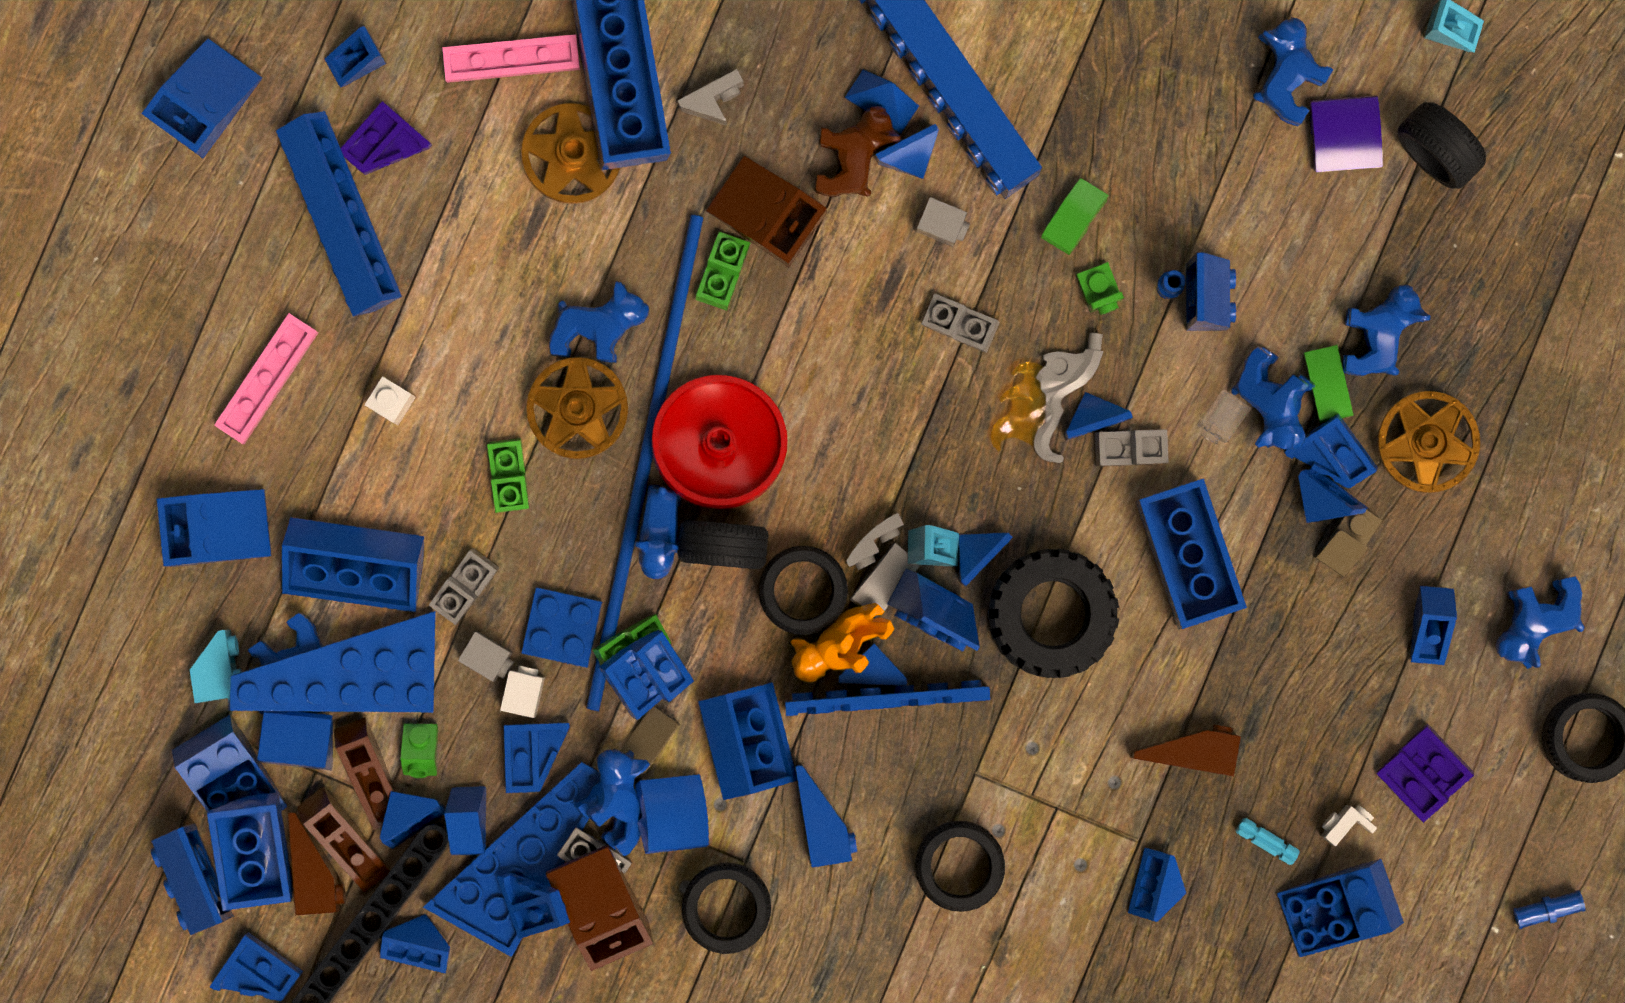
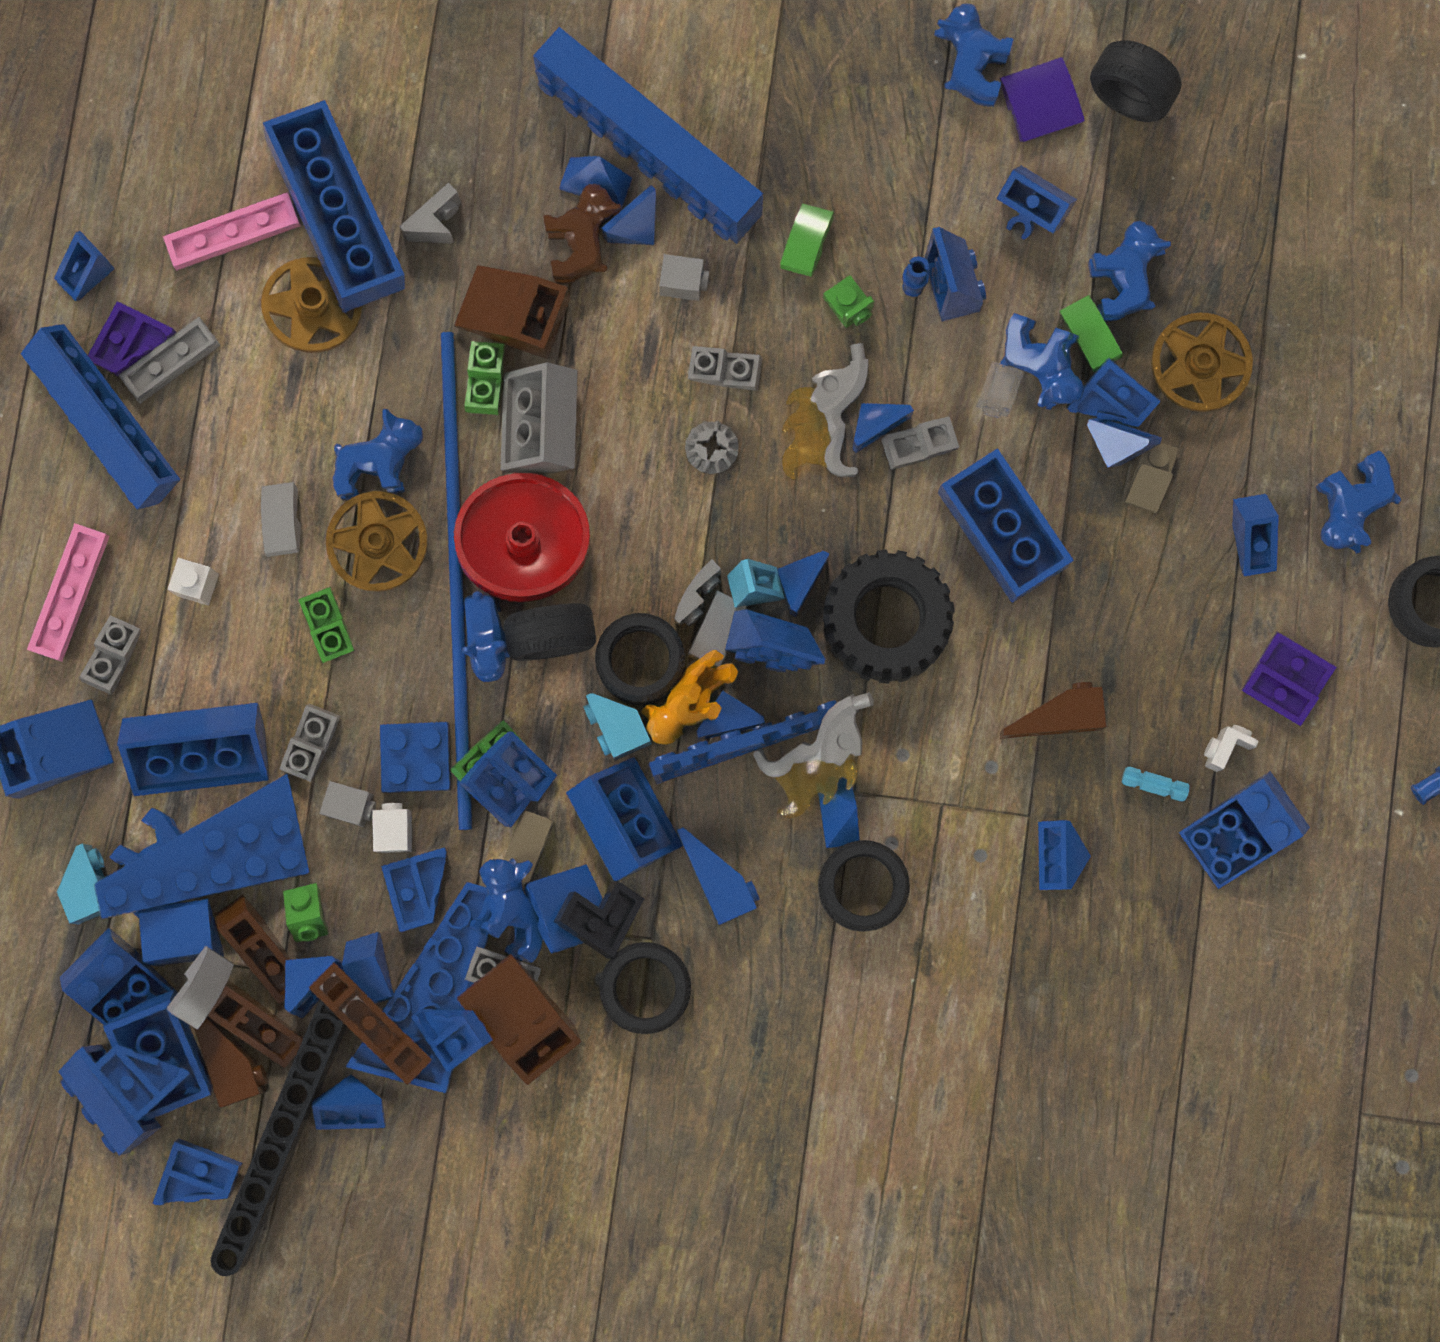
camera: 15 degrees left, 5 degrees down
(227, 871) = (136, 1079): none -> blue wing
(292, 450) = (111, 656): none -> light grey slope
(313, 795) = (204, 985): none -> light grey slope
(418, 171) = (169, 360): none -> light grey tile
(457, 875) = (370, 1023): none -> reddish brown slope
(488, 360) = (279, 520): none -> light grey slope
(701, 839) = (601, 926): none -> black plate
(765, 327) = (539, 419): none -> light grey slope
(767, 650) = (619, 724): none -> medium azure slope
(911, 402) = (721, 459): none -> light grey gear
(950, 740) = (822, 764): none -> piece
(955, 787) = (840, 817): none -> blue slope
(1310, 238) = (1035, 201): none -> blue brick

